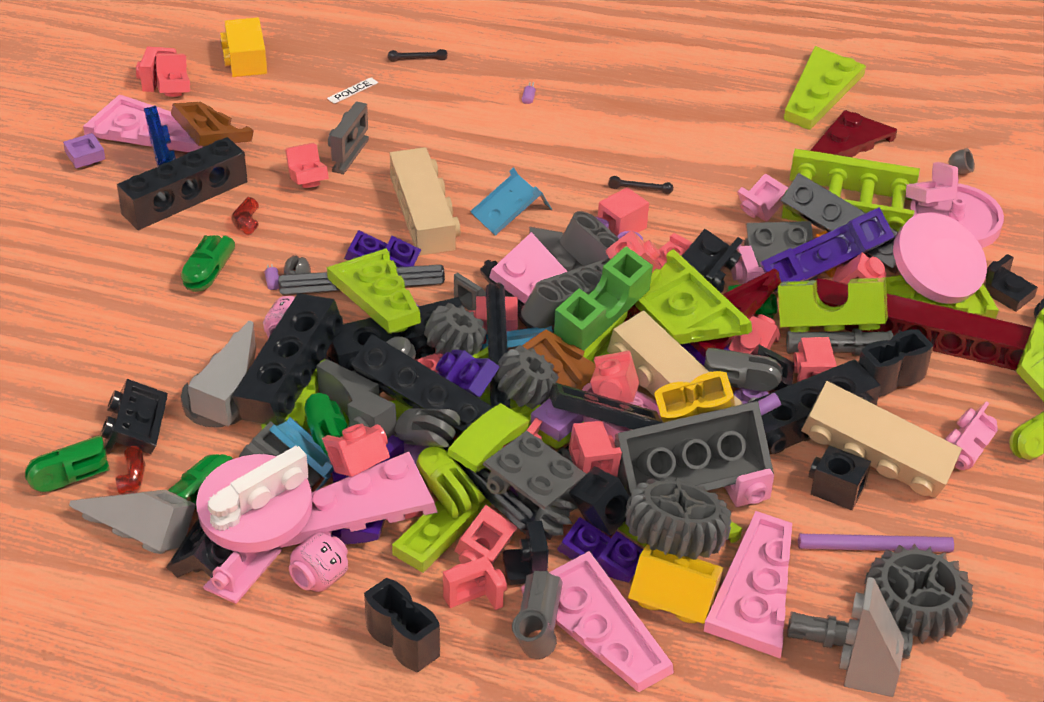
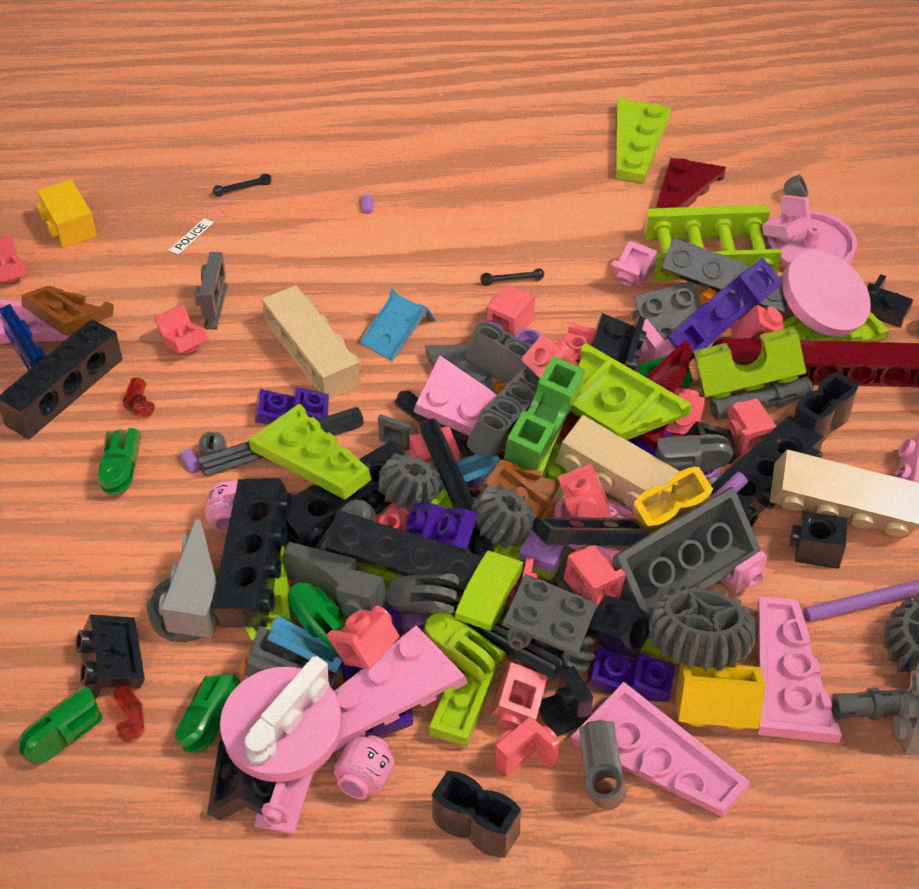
camera: 15 degrees left, 5 degrees up
(151, 517) = (168, 763): light grey slope -> none

